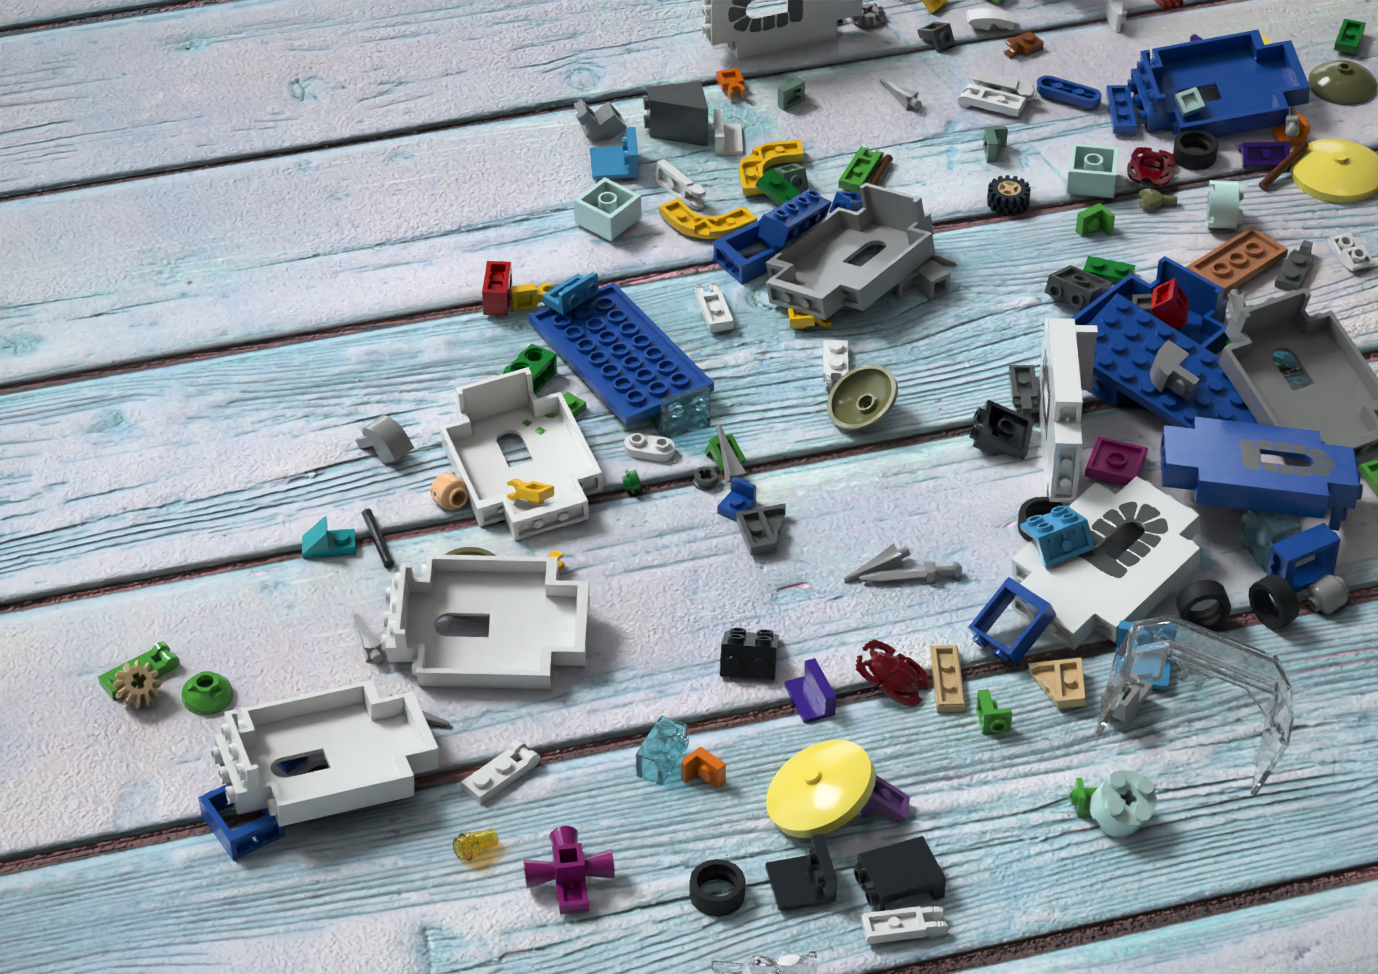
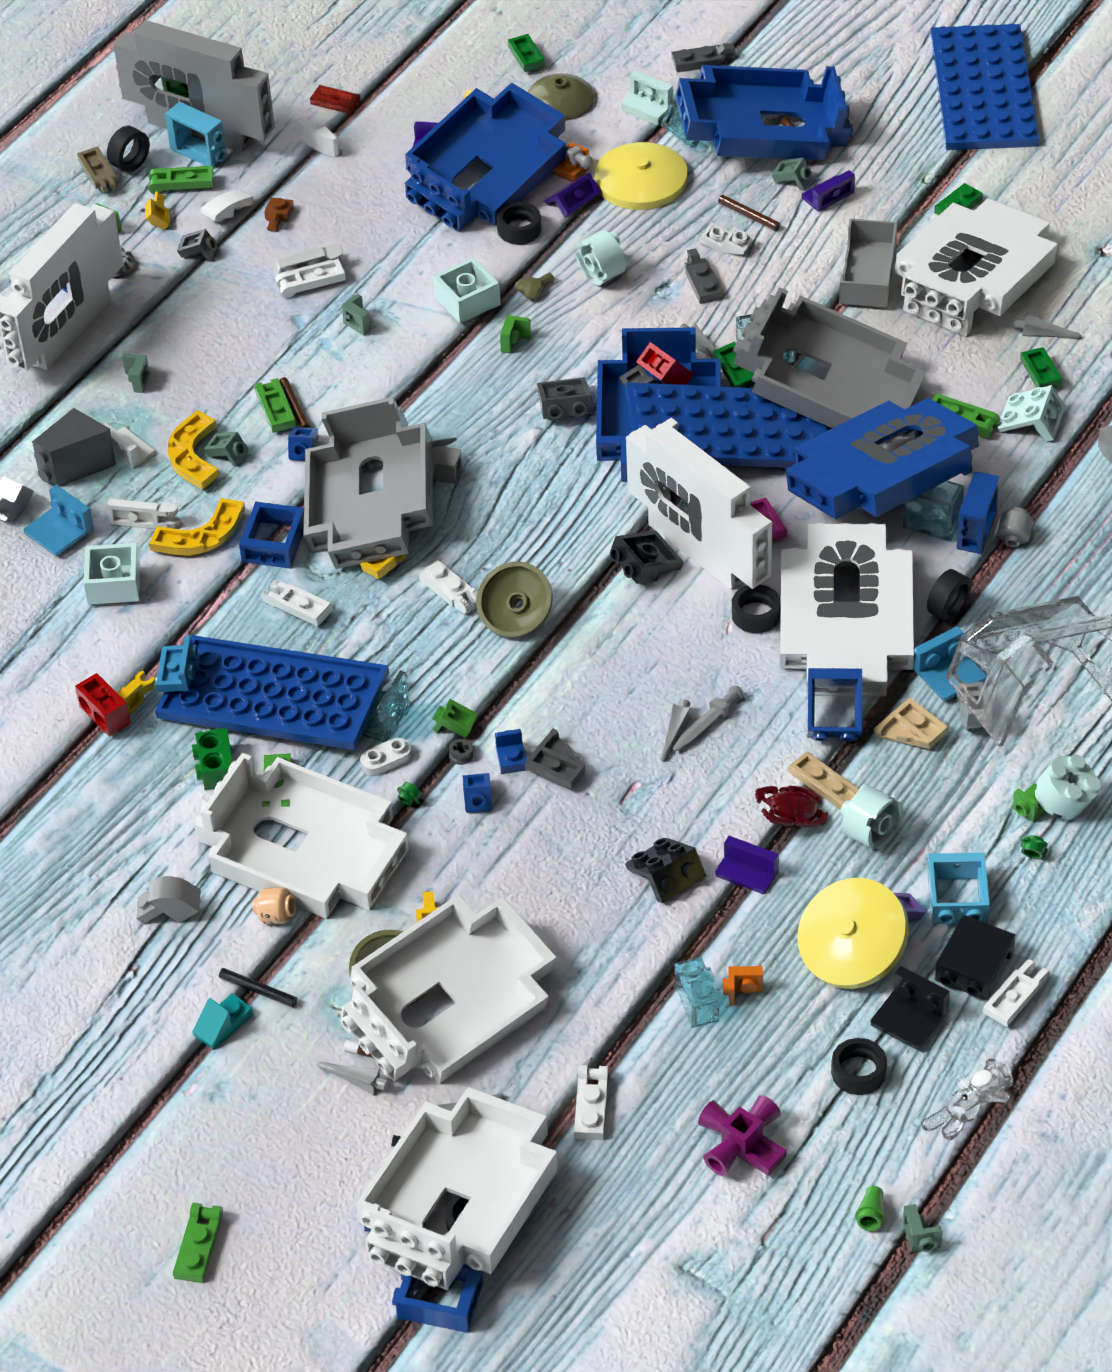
camera: 40 degrees left, 5 degrees up
(139, 674) = (221, 1252): tan gear -> none
(209, 699) = (279, 1227): bright green piece -> none
(472, 844) = (643, 1173): clear yellow cone -> none
(533, 491) = (351, 857): yellow plate -> none
(678, 509) = (477, 793): none -> blue bracket
(731, 81) = (73, 392): orange plate -> none
(731, 464) = (478, 727): light grey piece -> none
(776, 187) = (235, 465): green plate -> none
(793, 218) = (284, 481): blue brick -> none
(905, 96) = (236, 317): light grey piece -> none
(939, 719) = (870, 817): none -> light aqua brick
(963, 799) = (970, 867): none -> medium azure window
(990, 717) = (893, 787): bright green bracket -> none
(1008, 195) = (420, 353): black wheel -> none
(1023, 388) = (618, 510): dark grey hinge -> none
(1048, 831) = (1033, 846): none -> green plate
(1059, 534) = (802, 605): dark azure bracket -> none
(1068, 92) = (364, 232): blue plate -> none
(1108, 269) = (568, 368): green plate -> none
(1121, 109) = (422, 223): blue plate -> none
(1151, 166) = (501, 258): dark red shield -> none
(1170, 372) = (732, 424): light grey brick -> none
(1189, 102) = (477, 183): light aqua plate -> none
(1239, 259) = (655, 296): nougat plate -> none
(1282, 594) = (996, 545): black tyre -> none
(1283, 165) = (601, 196): reddish brown bar -> none

